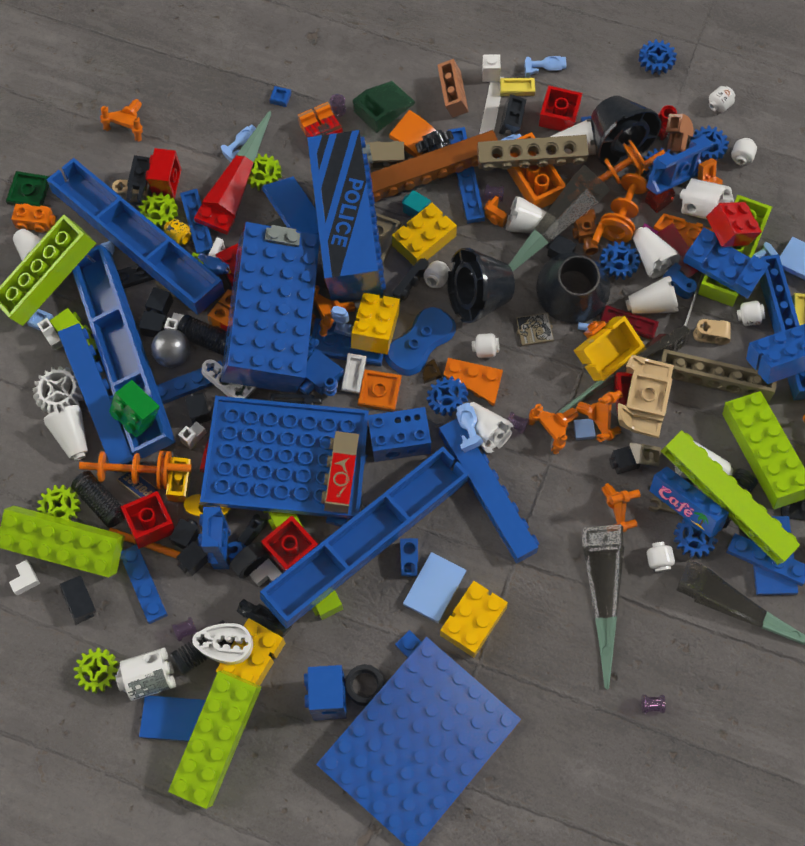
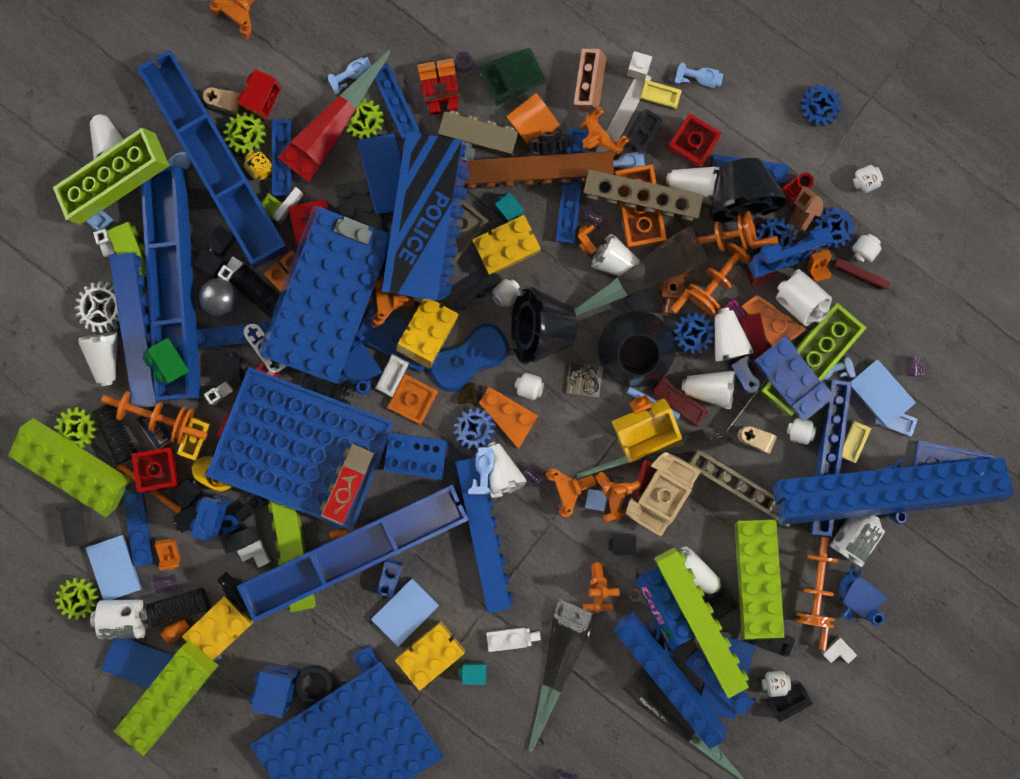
camera: 15 degrees right, 20 degrees up
(26, 579) = (32, 490): white piece -> none
(28, 189) = (118, 64): dark green tile -> none
(33, 217) = (121, 105): orange brick -> none
(127, 629) = (113, 568): none -> light blue tile
(137, 177) = (229, 96): black hinge -> none
(180, 598) = (168, 554): none -> orange bracket
(204, 676) = (174, 631): none -> orange cone
(214, 264) = (283, 223): blue animal -> none
(216, 634) = (194, 628): white piece -> none
(280, 96) = (407, 29): blue tile -> none
(287, 152) = (395, 101): none -> blue plate
(288, 543) = (279, 543): red brick -> none
(341, 317) = (394, 325): light blue piece -> none
(474, 125) = (598, 136): none -> orange axle
(522, 624) = (473, 673): none -> teal brick
(548, 582) = (511, 639): none -> white hinge
(646, 454) = (643, 546): dark tan slope -> none
(660, 557) = (619, 652): white head -> none
(722, 567) = (671, 680): none -> blue brick
(733, 224) = (815, 343): red brick -> none
(747, 173) = (860, 274): none -> dark red tile

